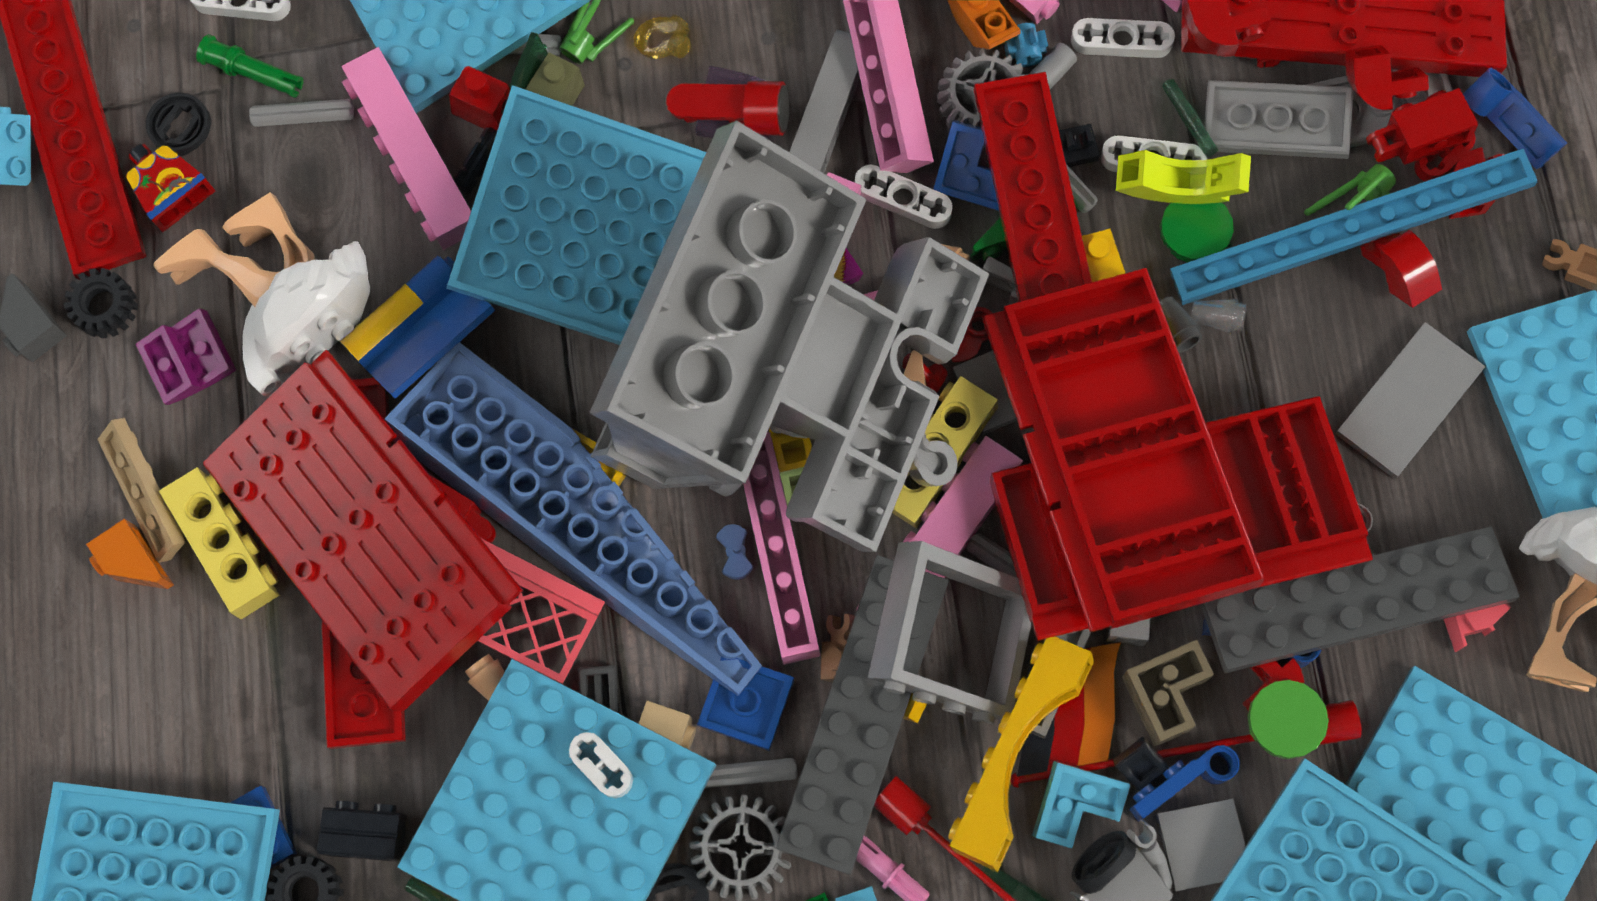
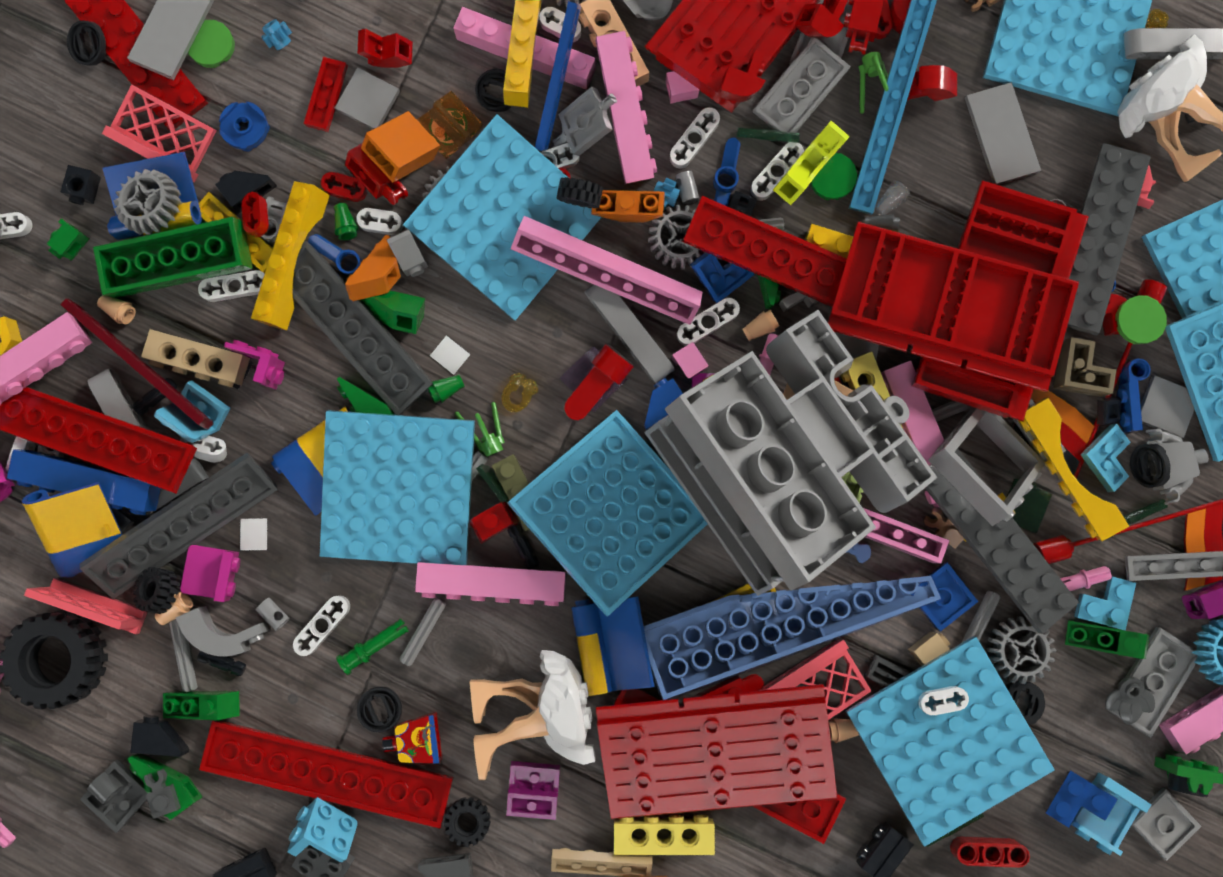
camera: 65 degrees left, 10 degrees up
(940, 742) = (1032, 510): none -> clear green piece
(1078, 113) = (727, 167): none -> blue piece

